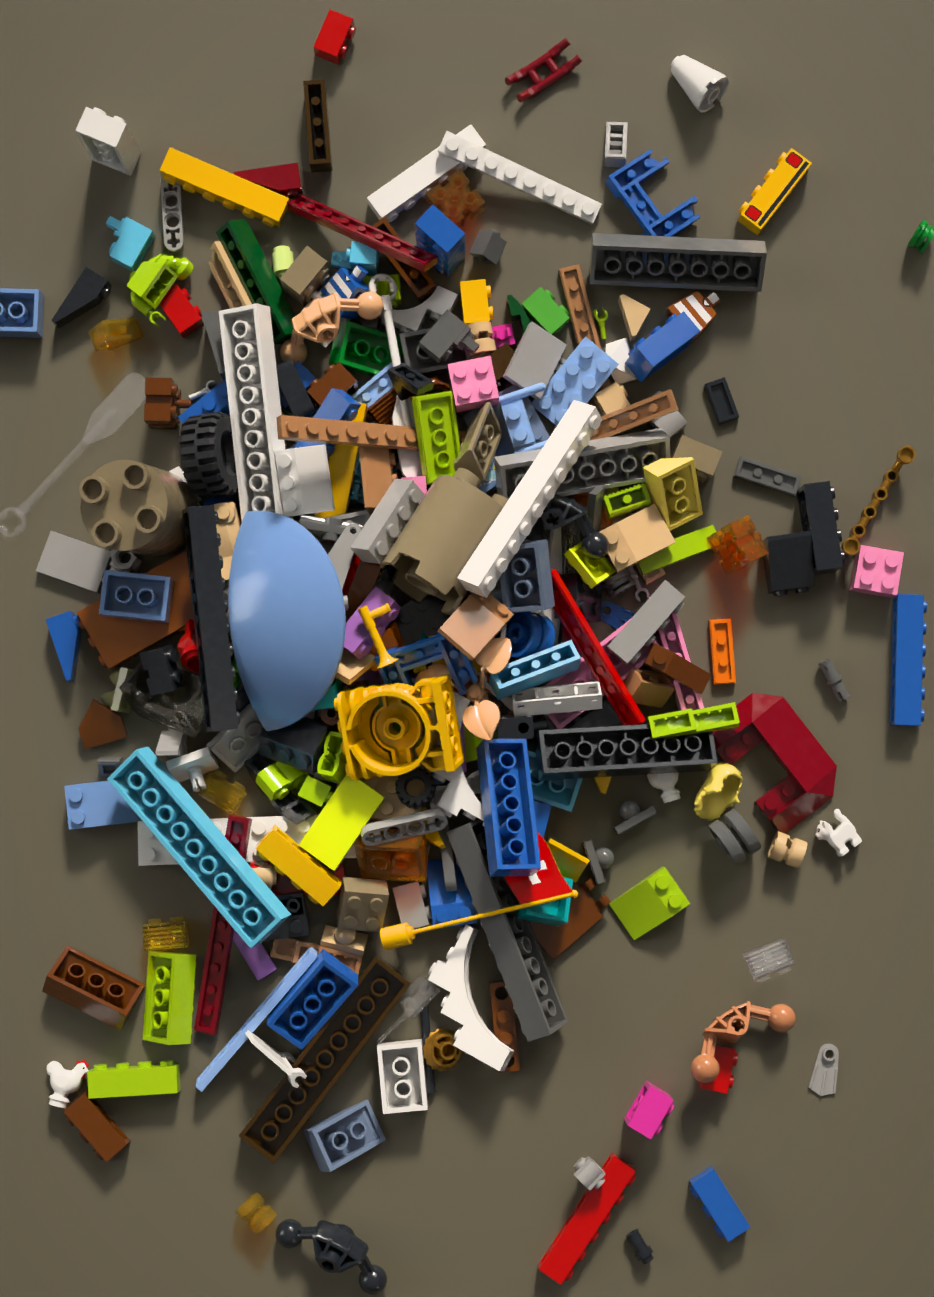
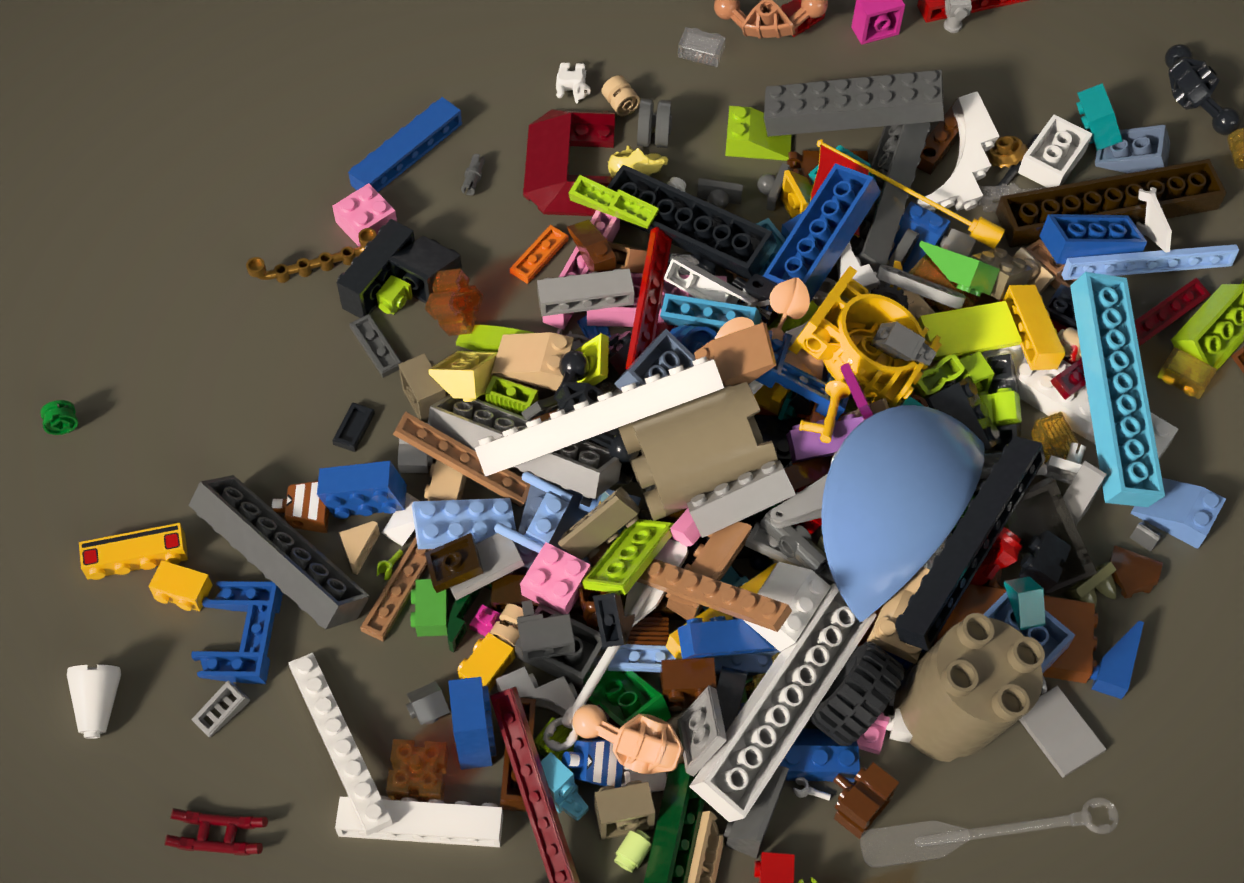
camera: 140 degrees left, 25 degrees down
(147, 609) = (1026, 601): none -> teal slope
(292, 352) = (701, 730): none -> light grey tile
(365, 661) = (856, 391): none -> magenta tile
(368, 732) = (902, 343): none -> dark grey hinge
(388, 870) = (969, 274): none -> bright green slope
(390, 1139) = (1098, 117): none -> teal piece
(551, 343) = (454, 563): none -> dark brown plate
(585, 972) = (854, 103): none -> dark grey brick
(719, 194) = (180, 586): none -> yellow brick
(791, 520) = (393, 295): none -> lime brick

